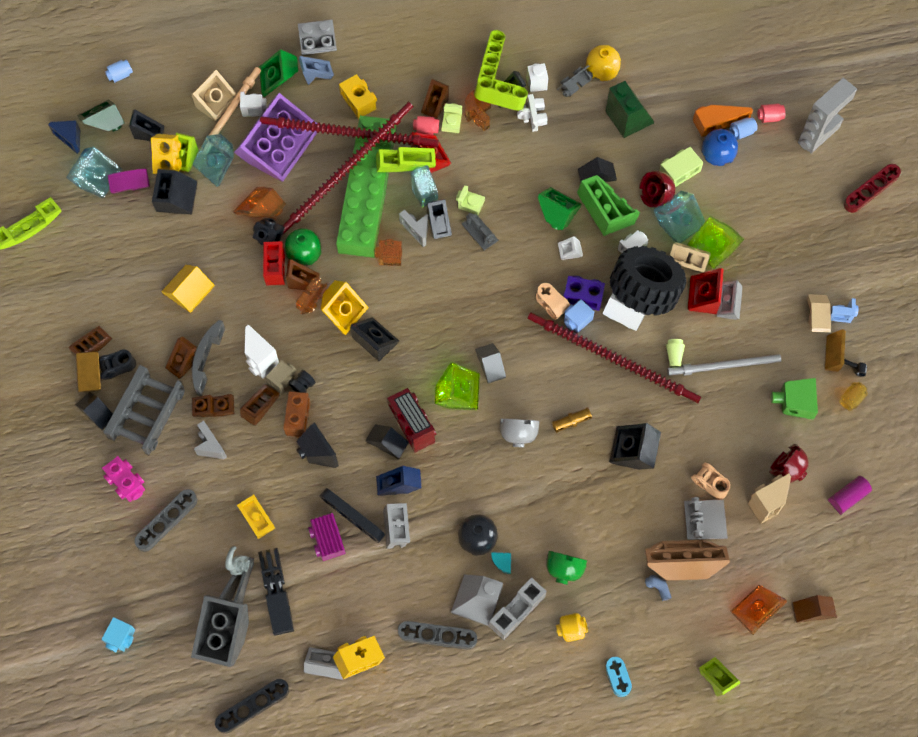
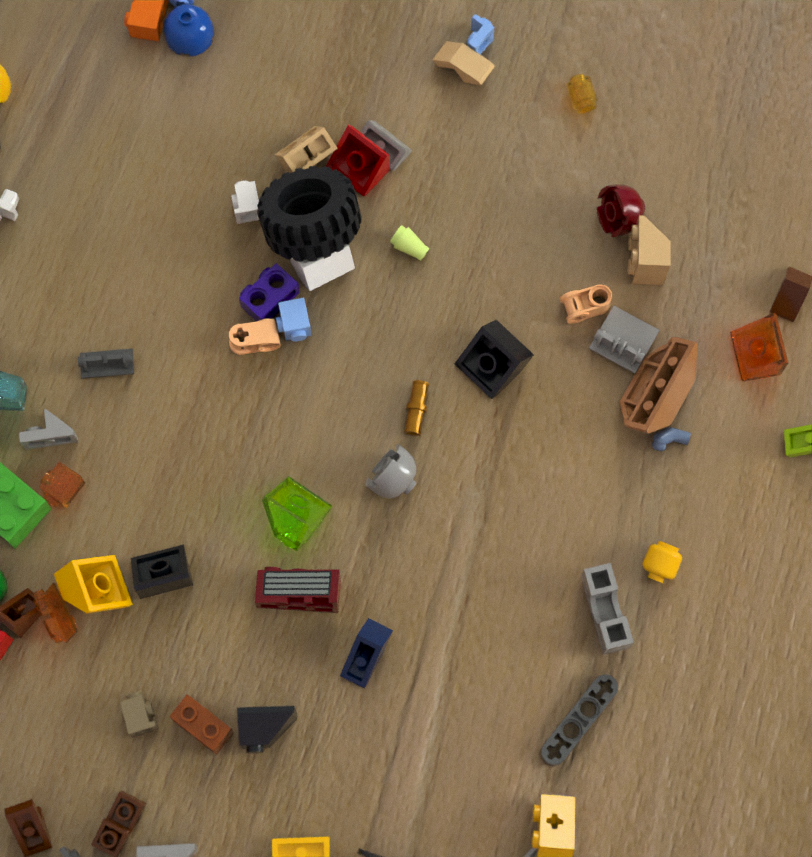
camera: 60 degrees left, 5 degrees up
(212, 336) = (25, 770): dark grey slope -> none
(254, 415) = (163, 785): reddish brown slope -> none
(259, 353) = (92, 723): white slope -> none
(302, 382) = (163, 694): black wheel -> none
(327, 537) = (382, 780): magenta brick -> none
(352, 515) = (373, 733): black beam -> none
(387, 440) = (303, 635): black slope -> none
(396, 525) = (419, 688): light grey hinge -> none
(439, 219) = (59, 400): slope -> none
(469, 201) = (58, 349): yellowish green bracket -> none
(477, 534) = (487, 600): black cylinder -> none
(477, 598) = (564, 647): light grey slope -> none
(491, 363) = (283, 454): slope -> none
(502, 561) = (536, 592): teal tile -> none
(558, 208) = (140, 254): green slope -> none
(565, 567) = (589, 524): green cylinder -> none
(570, 248) = (200, 275): white slope -> none
(599, 167) = (123, 183): black slope -> none
(605, 206) = (177, 200): bright green wedge -> none
(623, 675) = (746, 541): medium azure beam -> none
(626, 110) = (71, 98): dark green slope -> none
(657, 189) = (196, 130): dark red cylinder -> none
(678, 389) = (283, 358): dark red hose -> none
(680, 216) = (246, 128): clear light blue slope -> none
(682, 165) = (184, 88): yellowish green brick -> none
(688, 369) = (438, 241): light grey bar -> none
(717, 239) = (302, 109): clear neon green slope -> none
(798, 398) = (548, 150): bright green torso -> none
(835, 350) = (518, 76): pearl gold slope -> none
(850, 494) = (688, 172): magenta brick -> none
(861, 368) = (555, 64): black hand -> none

